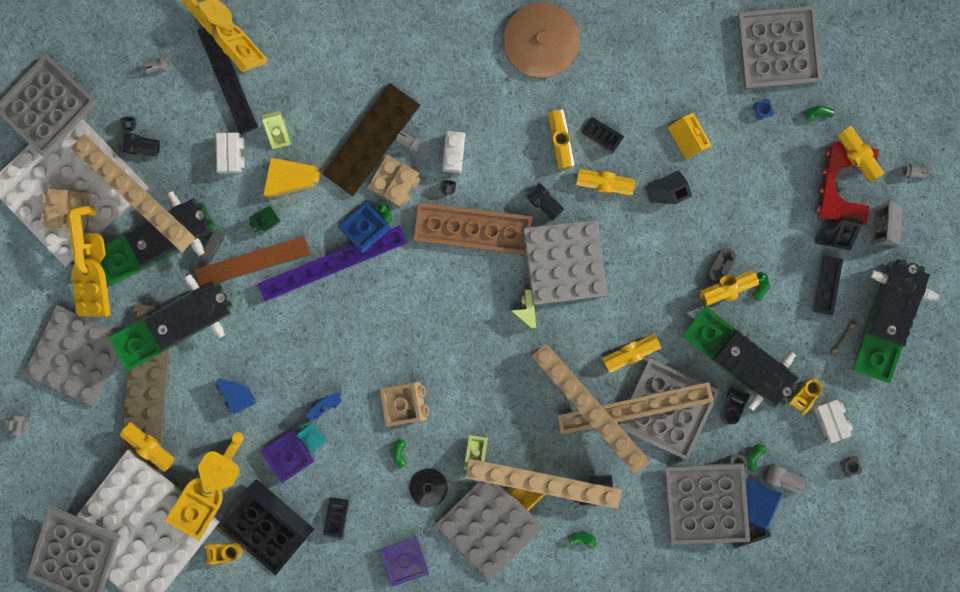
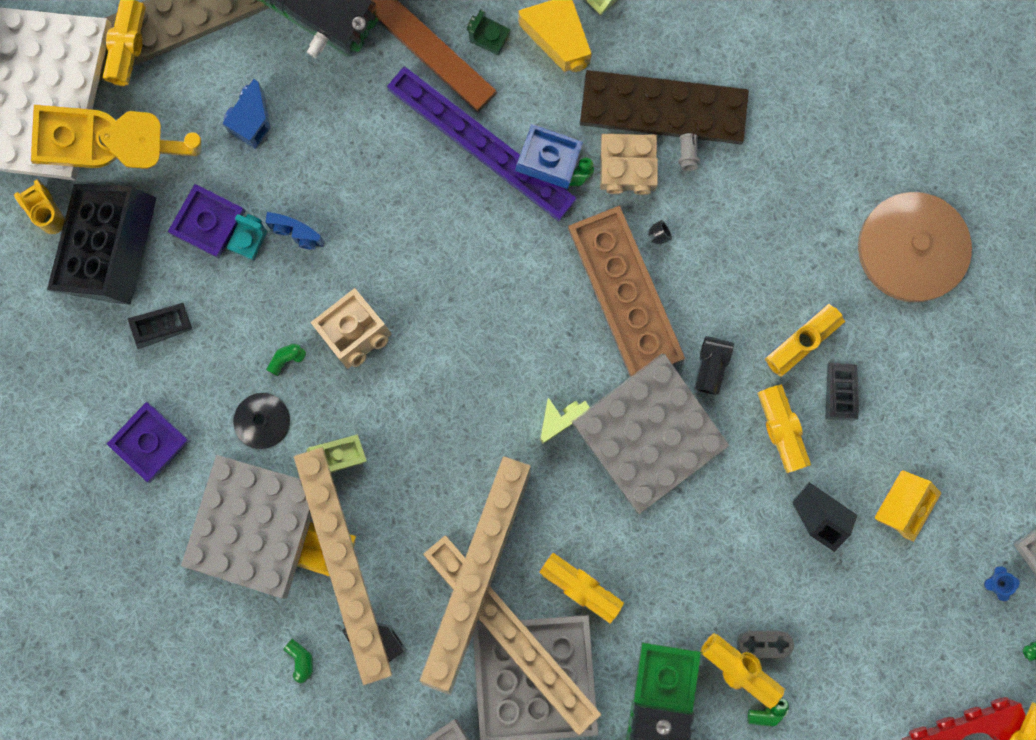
camera: 55 degrees right, 5 degrees down
(453, 152) = (708, 214): white brick -> none

